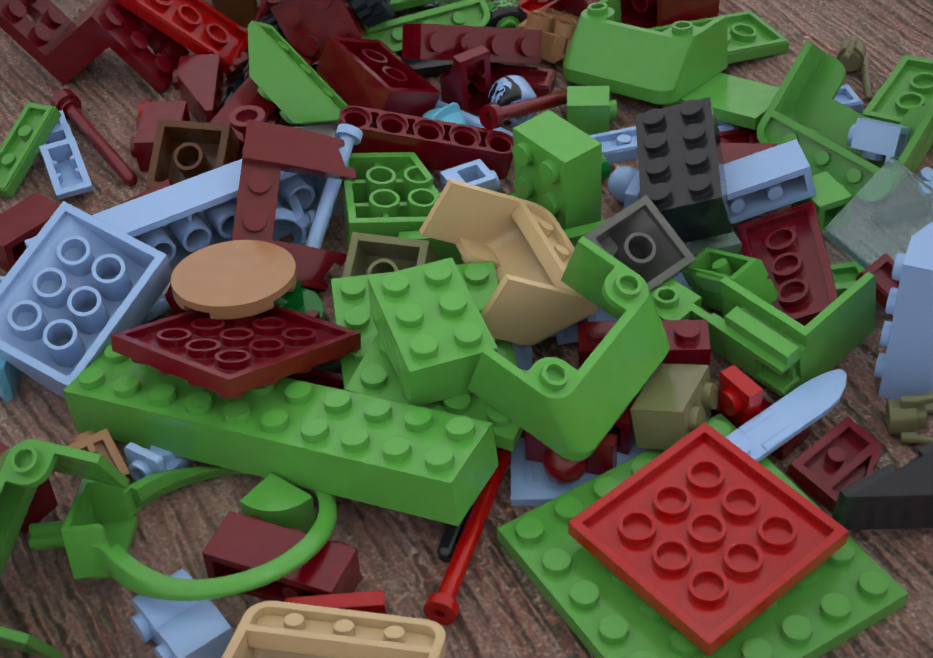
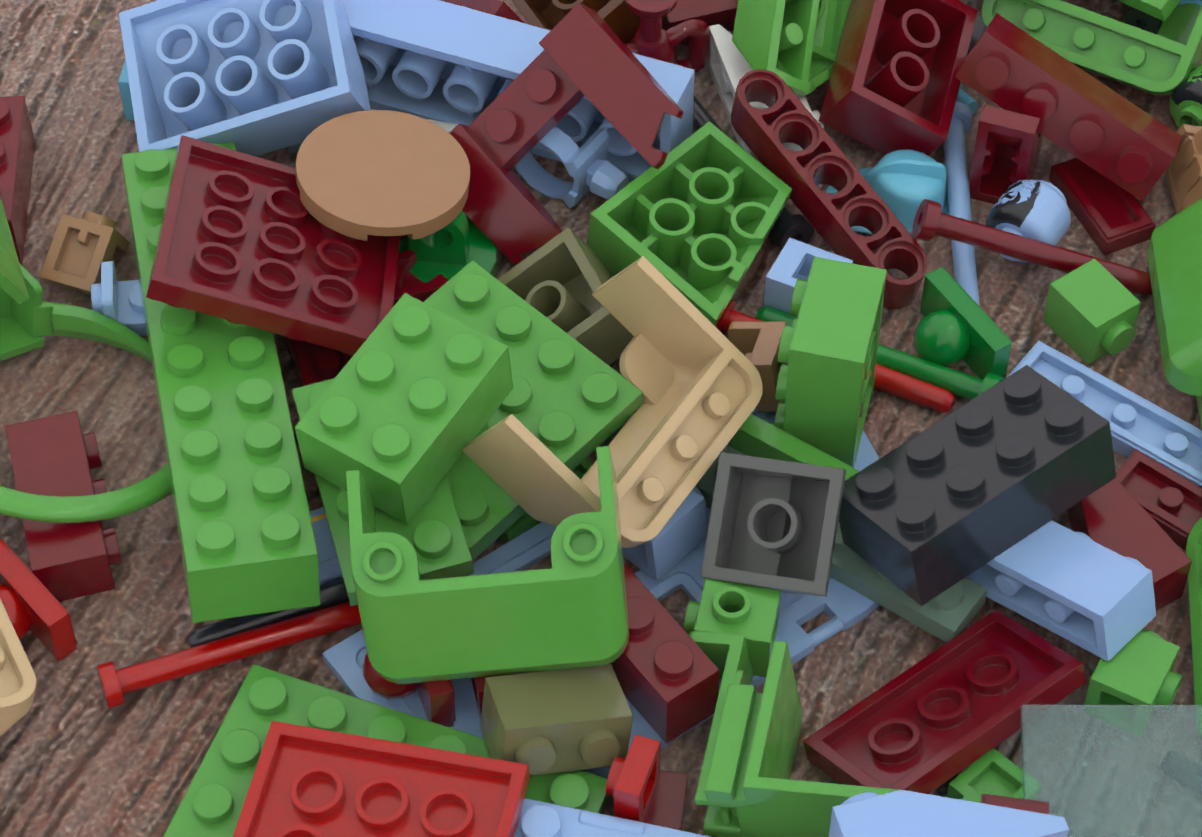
camera: 50 degrees right, 10 degrees up
(280, 504) = (130, 444): bright green brick -> none
(351, 136) = (712, 111): light blue bar -> none
(715, 264) = (835, 660): bright green brick -> none

